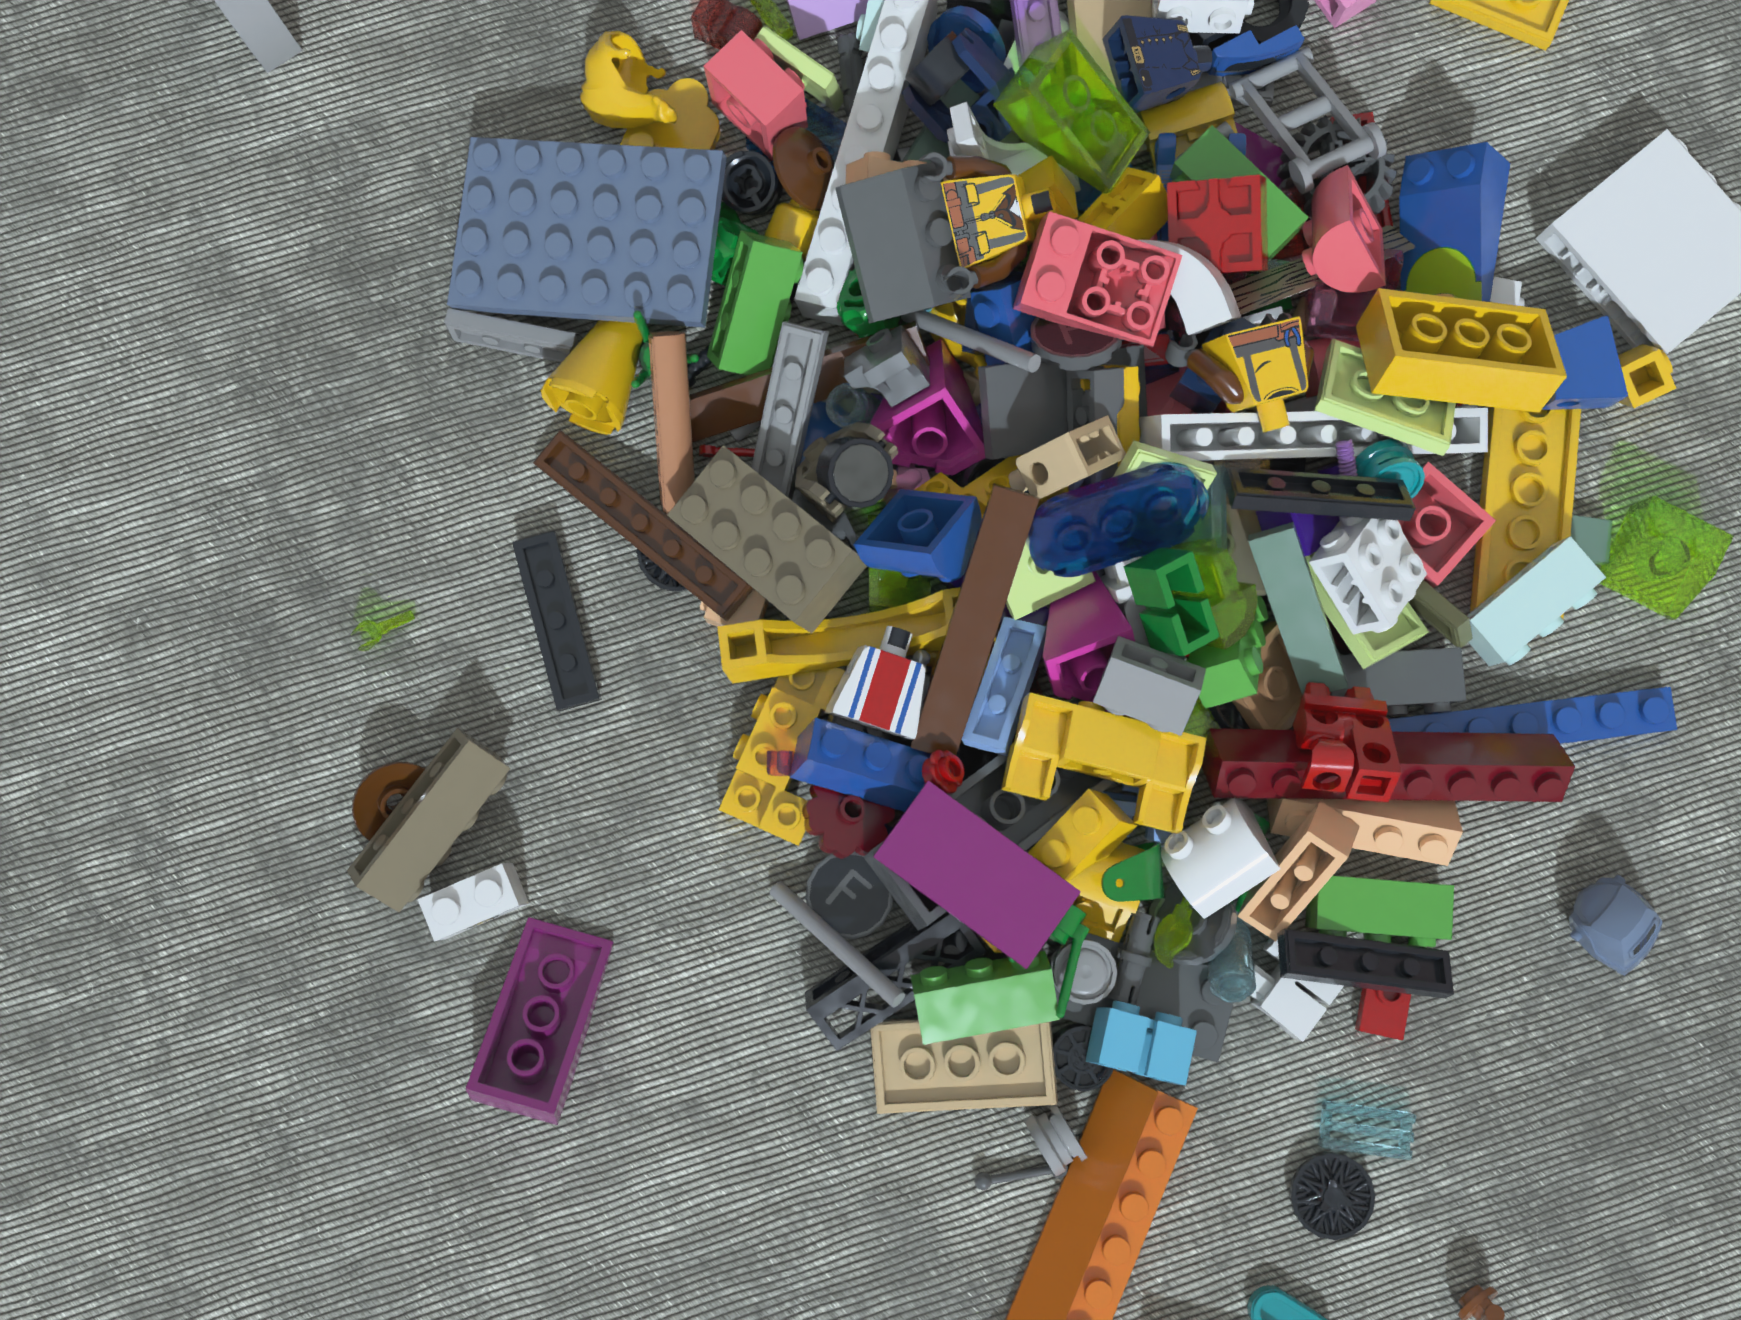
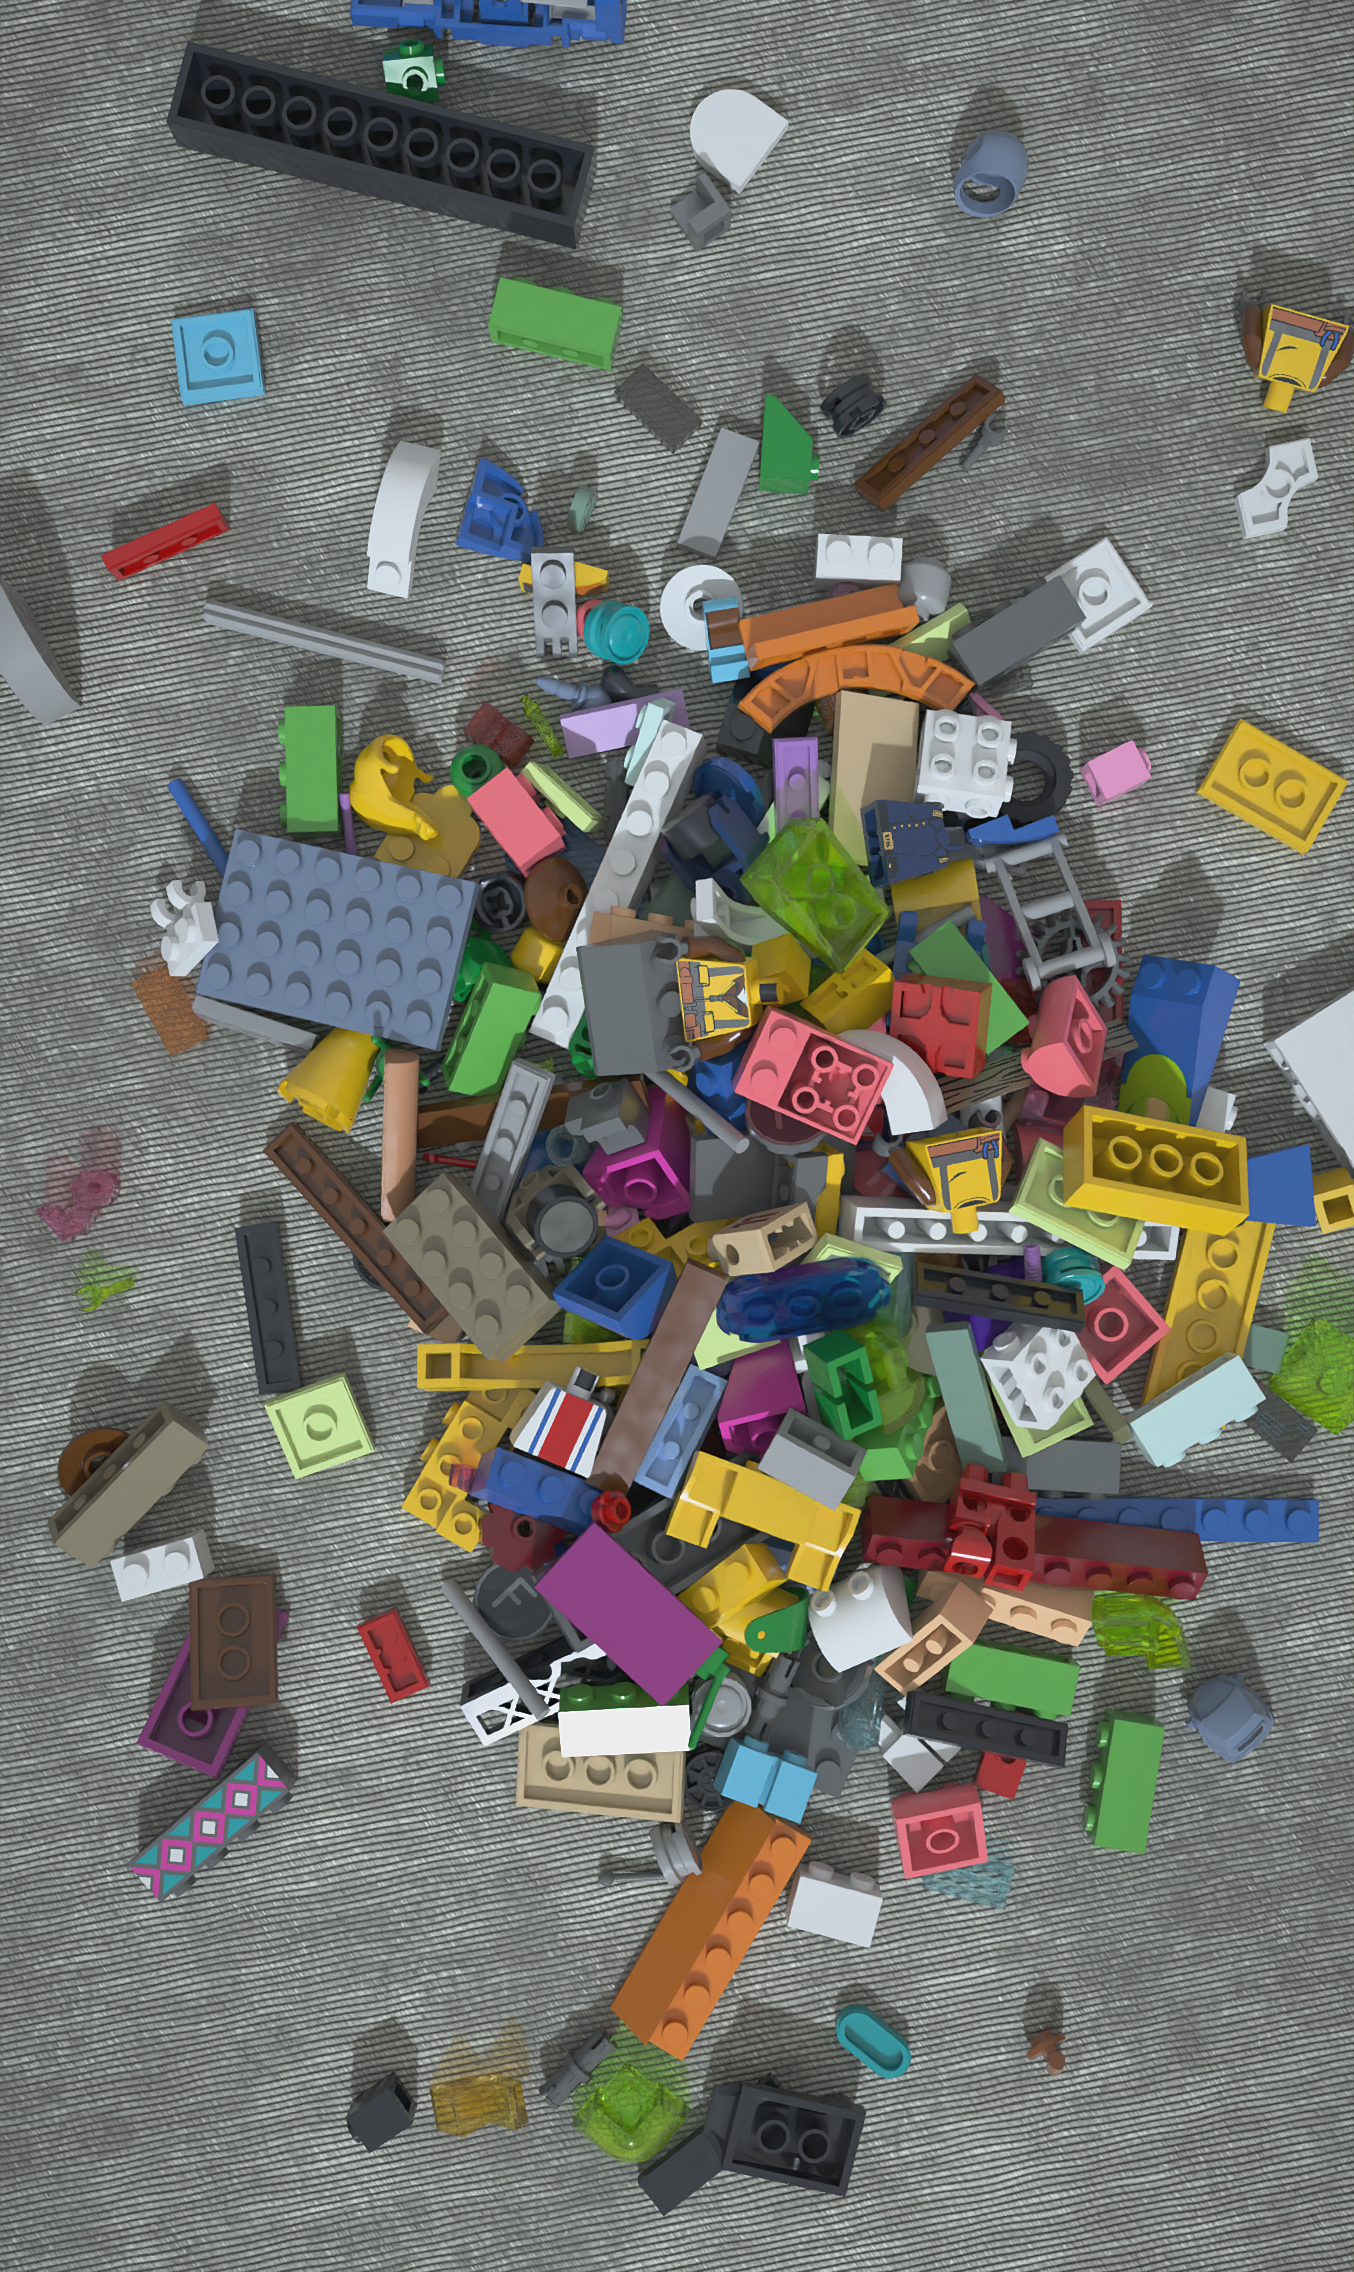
camera: 10 degrees right, 5 degrees up
(361, 524) = (89, 1191): none -> clear pink leg
(423, 335) = (170, 1011): none -> clear orange tile
(432, 147) = (199, 824): none -> blue bar
(434, 244) = (189, 931): none -> white plate
(541, 77) = (312, 771): none -> bright green brick
(555, 1172) = (213, 1822): none -> brick
(557, 973) = (233, 1642): none -> reddish brown tile
(582, 118) = (348, 826): none -> medium lavender piece
(623, 736) = (320, 1425): none -> yellowish green plate
(698, 51) = (474, 768): none -> green head
(728, 968) = (393, 1654): none -> red plate
(1173, 933) = (809, 1681): clear neon green piece -> none
(1230, 1175) = (834, 1903): none -> white brick
(1331, 1079) = (939, 1829): none -> coral brick
(1332, 1195) = (927, 1932): black wheel -> none
(1514, 836) = (1140, 1628): none -> clear neon green brick
(1516, 1005) = (1123, 1781): none -> bright green brick
(1615, 617) = (1280, 1425): none -> clear smoke tile

